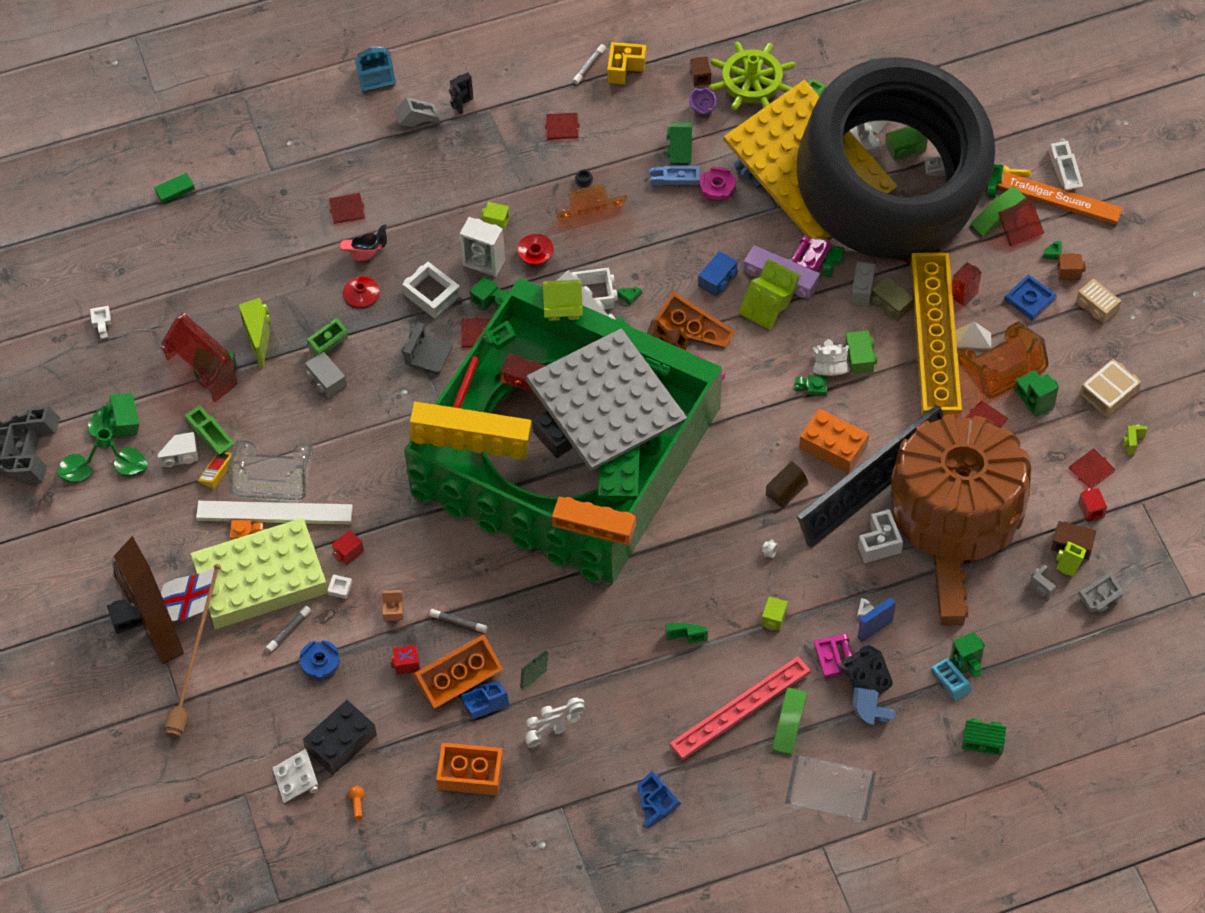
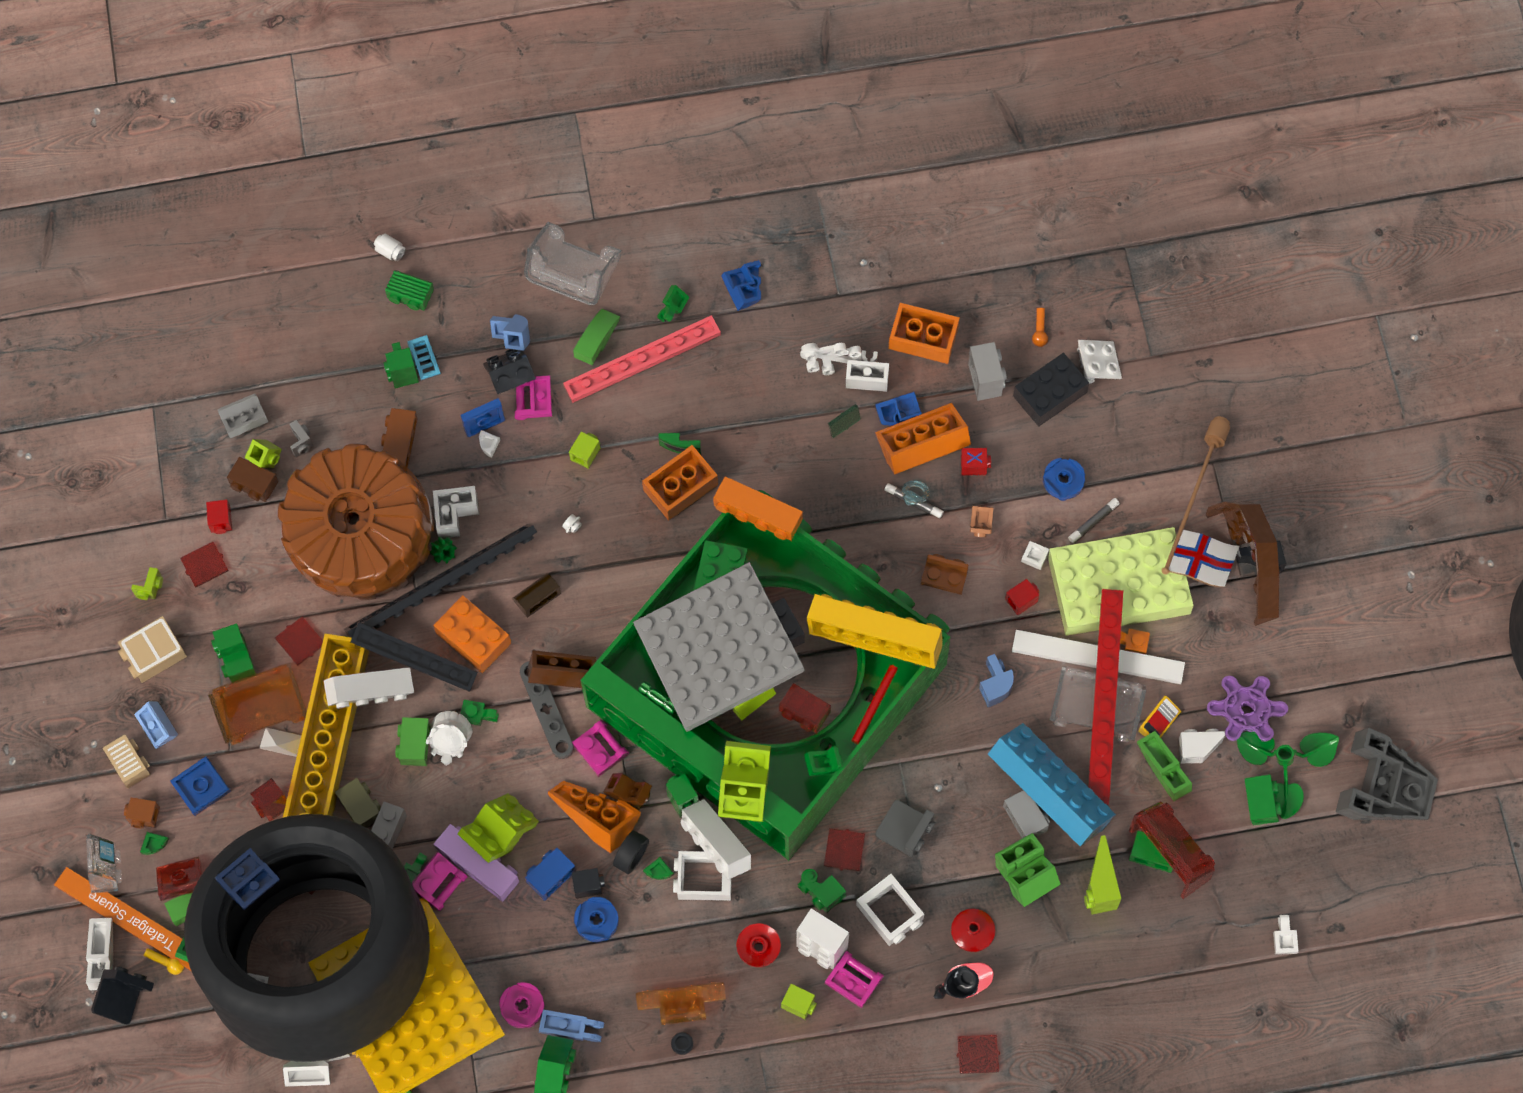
camera: 170 degrees left, 10 degrees up
(132, 473) = (1250, 696): none -> medium lavender plate
(264, 470) = (1105, 693): none -> red plate
(306, 393) = (1051, 784): none -> dark azure brick
(313, 323) = (1033, 880): none -> bright green brick
(360, 471) = (999, 685): none -> medium blue brick
(403, 738) = (986, 371): none -> light grey brick
(420, 559) = (945, 573): none -> dark orange bracket
(450, 232) = (850, 985): none -> dark pink plate
(457, 614) = (911, 497): none -> clear light blue piece
(514, 717) = (866, 374): none -> white brick
(654, 293) = (631, 852): none -> black tyre
(675, 258) = (589, 909): none -> blue plate
(677, 592) = (680, 482): none -> orange brick
(685, 271) = (587, 883): none -> black brick
(722, 766) = (674, 301): none -> green plate
(746, 417) = (558, 668): none -> reddish brown brick
(762, 407) = (551, 723): none -> dark grey piece
(880, 406) = (413, 657): none -> black plate
(880, 503) = (443, 550): none -> green gear
(909, 371) = (368, 686): none -> white brick
(950, 153) = (247, 878): none -> dark blue slope
(1017, 776) = (389, 247): none -> white brick
(1037, 137) = (119, 994): none -> black bracket
(1084, 337) = (156, 724): none -> light blue slope
(1087, 217) = (102, 864): none -> clear slope

